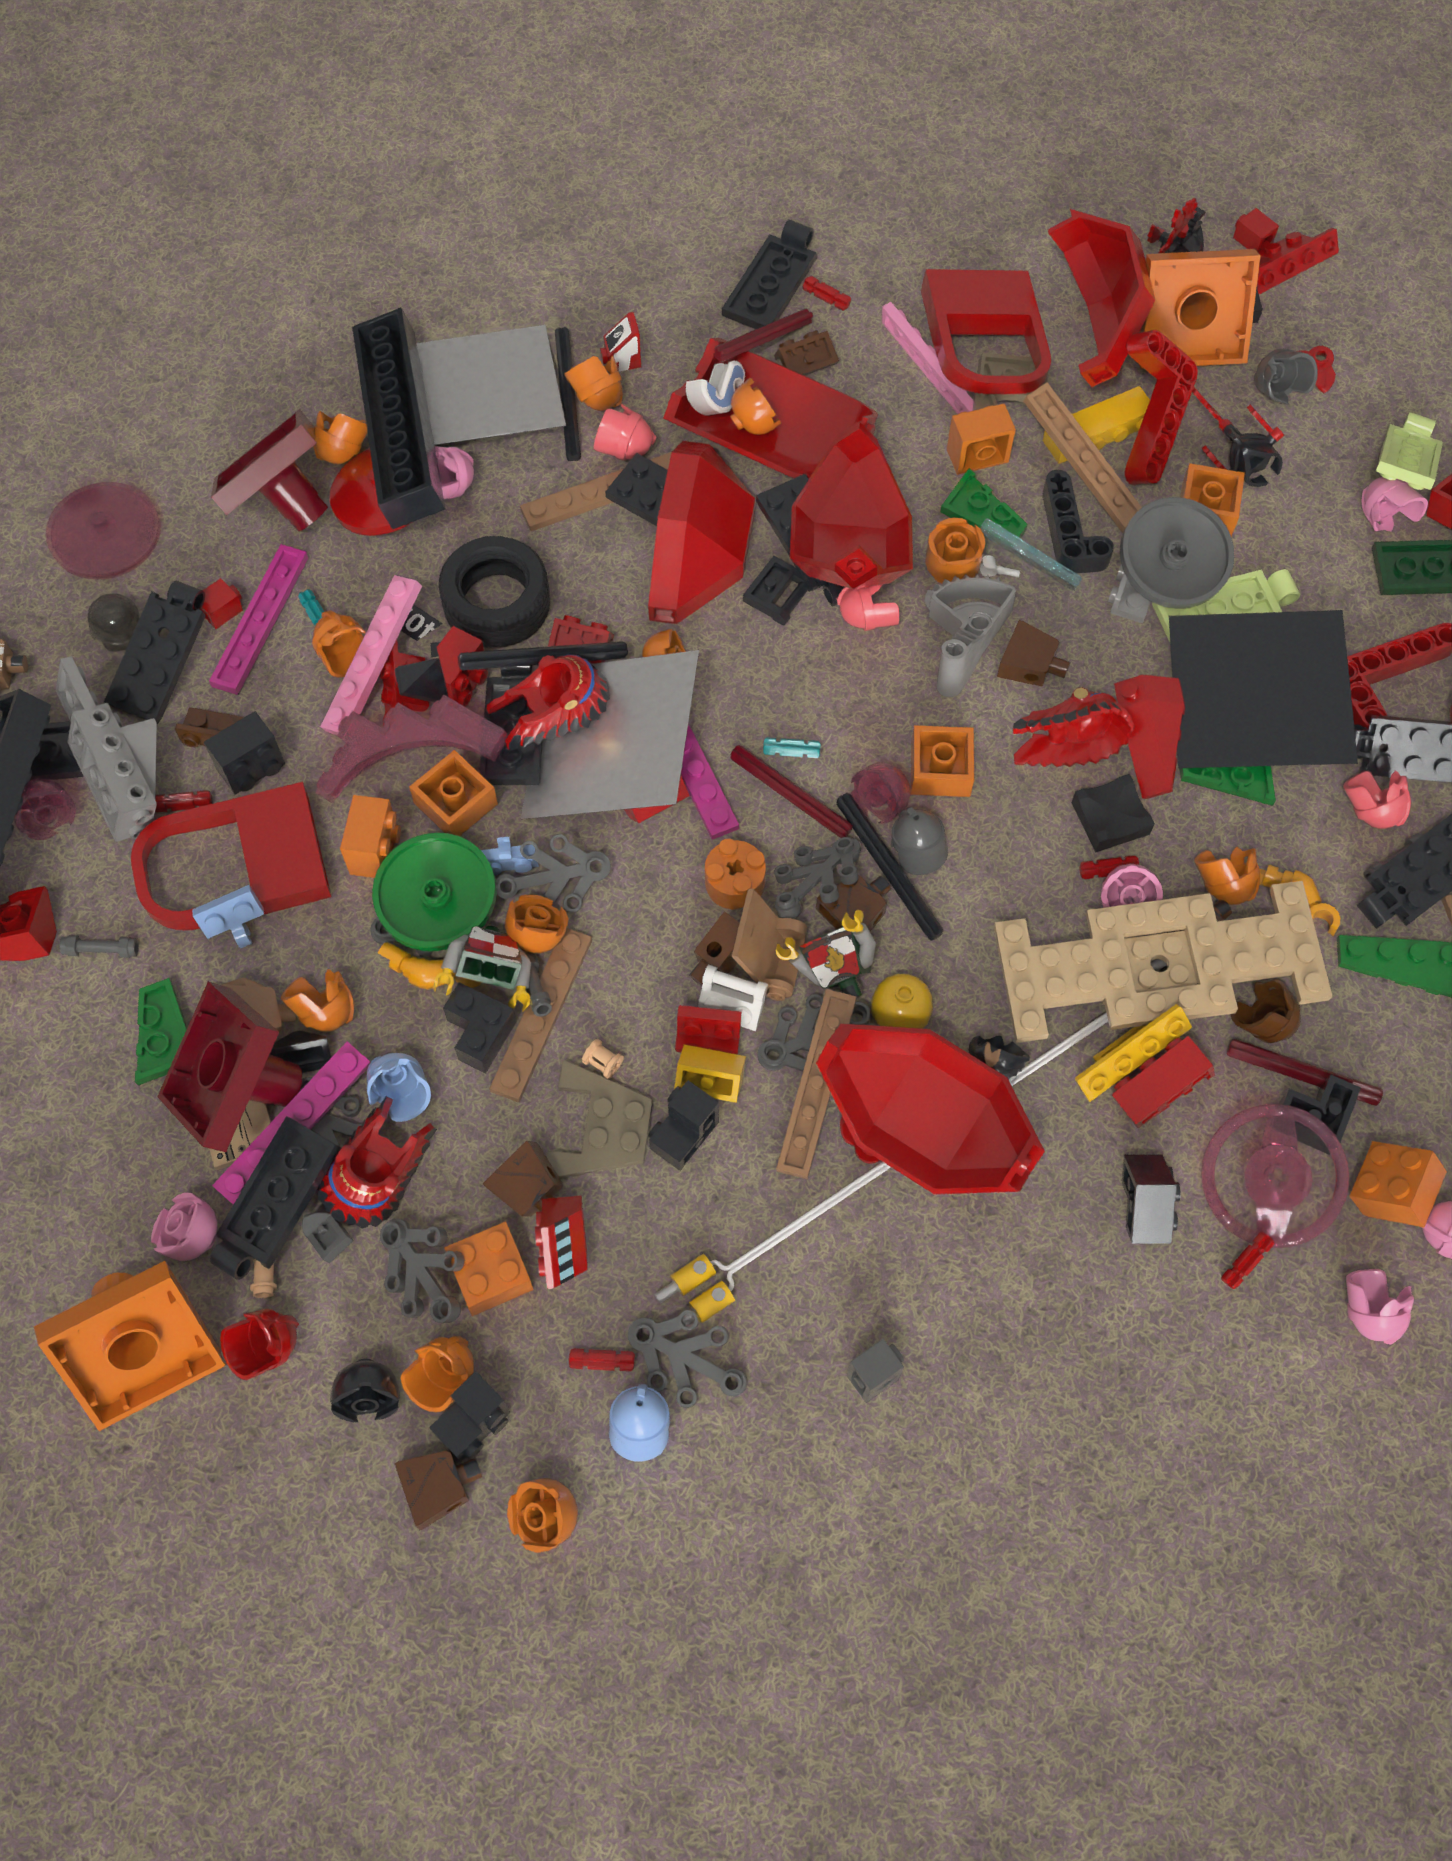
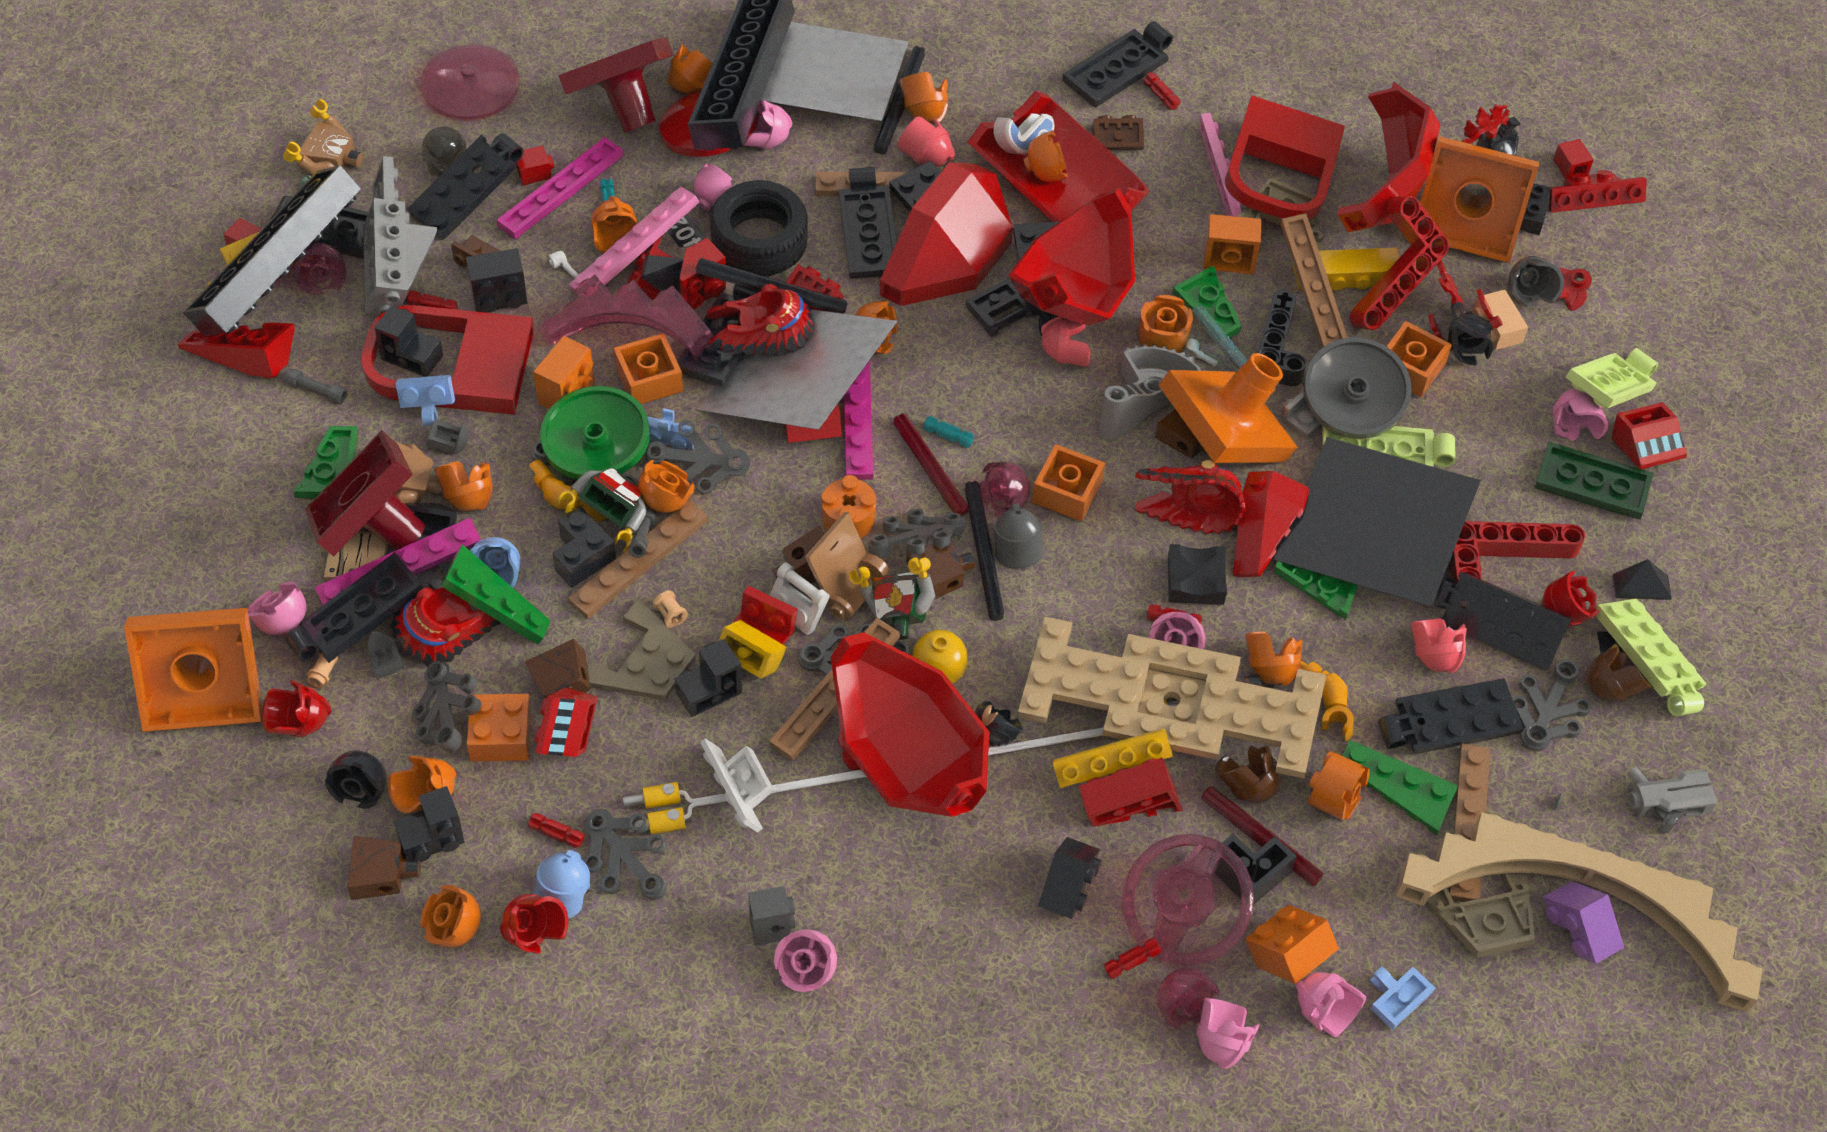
camera: 20 degrees right, 10 degrees down
(180, 864) = (404, 345): none -> black brick
(273, 952) = (448, 437): none -> dark grey plate
(296, 701) = (559, 259): none -> white hand
(411, 1122) = (487, 591): none -> green wing
(424, 561) = (710, 185): none -> bright pink cylinder
(603, 547) = (867, 224): none -> black hinge
(623, 344) = (962, 75): slope -> none
(625, 1479) = (532, 919): none -> red helmet
(763, 335) = (1085, 104): dark red axle -> none
(771, 1226) = (742, 780): none -> white bracket
(934, 1405) = (805, 960): none -> bright pink cylinder
(1071, 623) = (1230, 411): none -> orange piece
(1274, 417) = (1514, 326): none -> light nougat brick
(1319, 1280) = (1186, 990): none -> clear pink cylinder
(1358, 992) = (1338, 786): none -> orange brick

